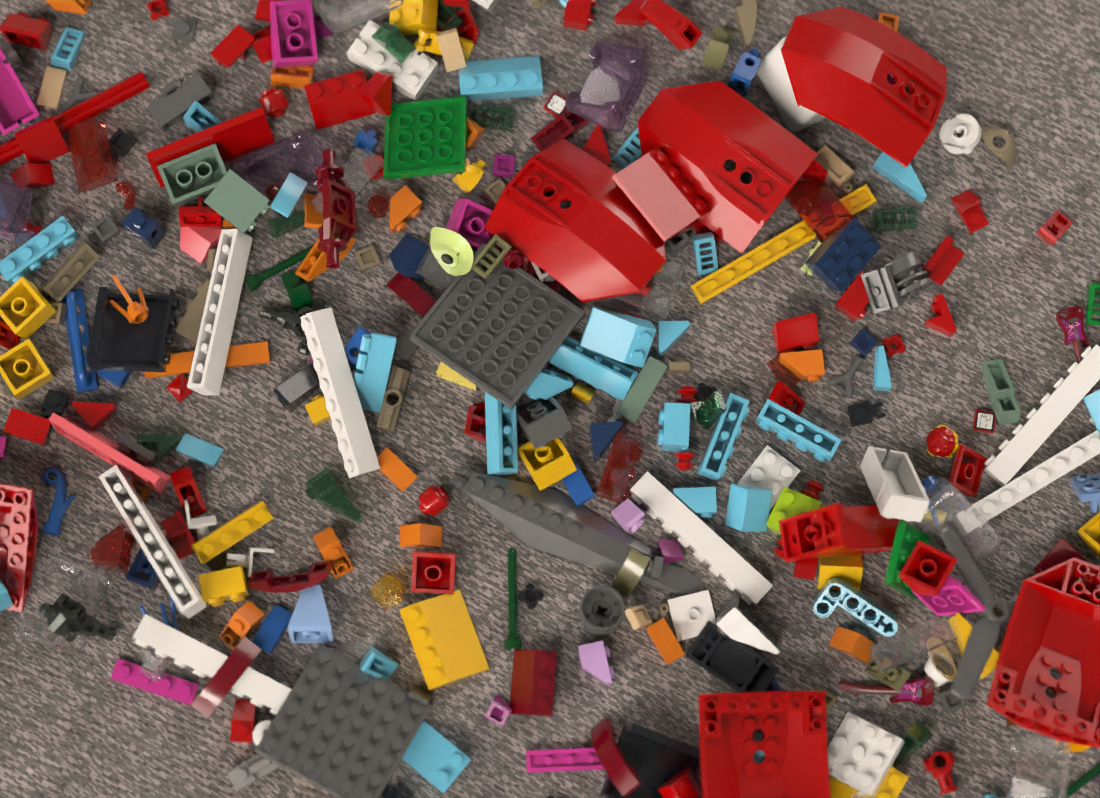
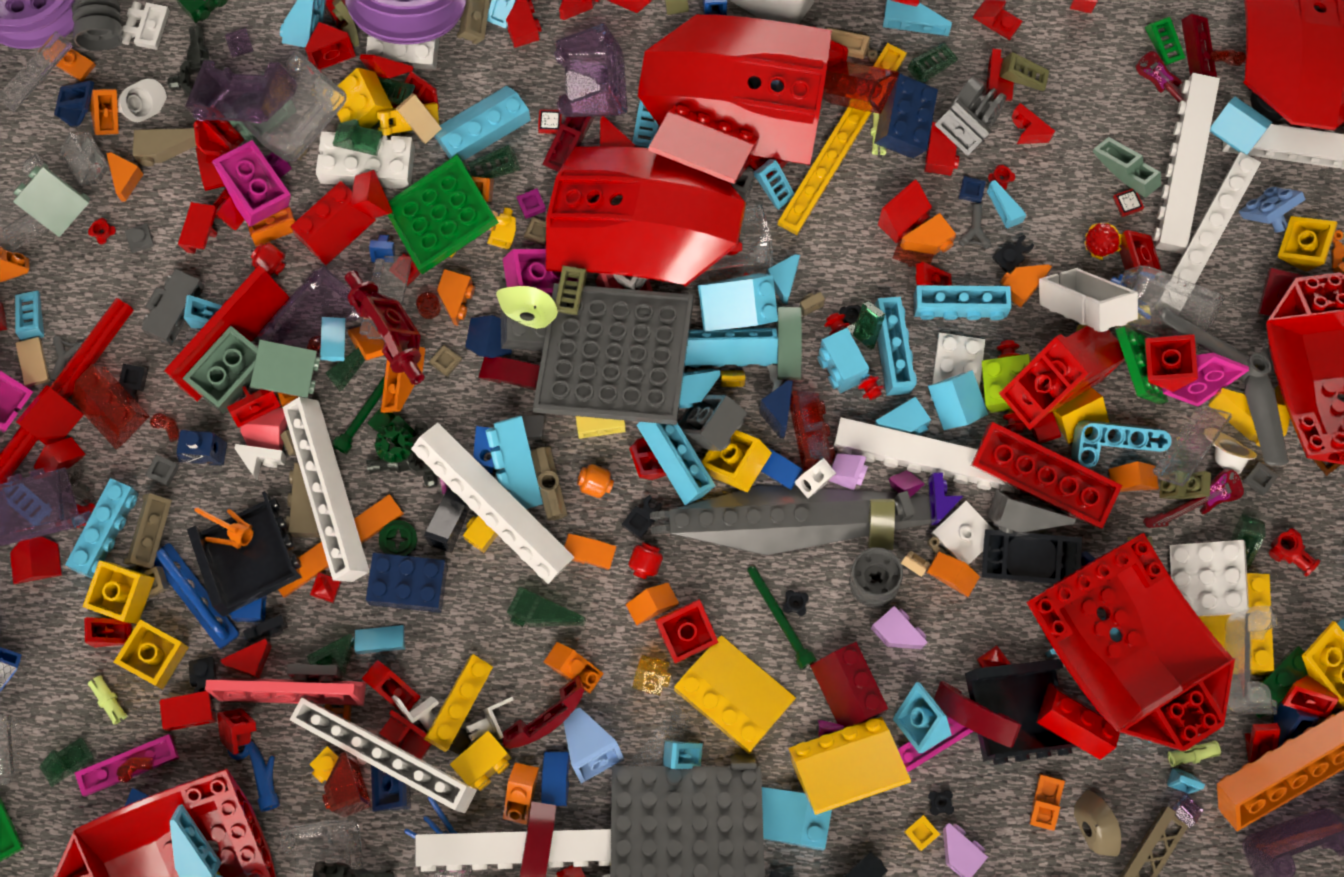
camera: 25 degrees left, 5 degrees down
(56, 460) = (235, 729): none -> red panel
(107, 523) = (324, 764): none -> yellow brick
(124, 397) = (271, 627): none -> black plate
(179, 256) = (253, 457): none -> white slope
(243, 418) = (407, 582): none -> dark blue brick
(252, 371) = (390, 531): none -> dark green gear
(288, 314) = (395, 454): none -> dark green gear
(429, 417) = (595, 481): none -> orange head
(446, 465) = (639, 520): none -> black plate
(496, 741) = (848, 765): none -> yellow slope
(513, 259) = (594, 280): dark red plate -> none
(572, 739) = (922, 720): none -> medium azure slope
(600, 508) = (817, 478): none -> white leg
(657, 723) = (993, 658): none -> red tile
(686, 582) = (939, 503): none -> dark purple slope
(780, 604) = (1046, 475): none -> red arch
(857, 440) = (1024, 281): none -> orange slope
(959, 273) = (1010, 71): none -> olive slope

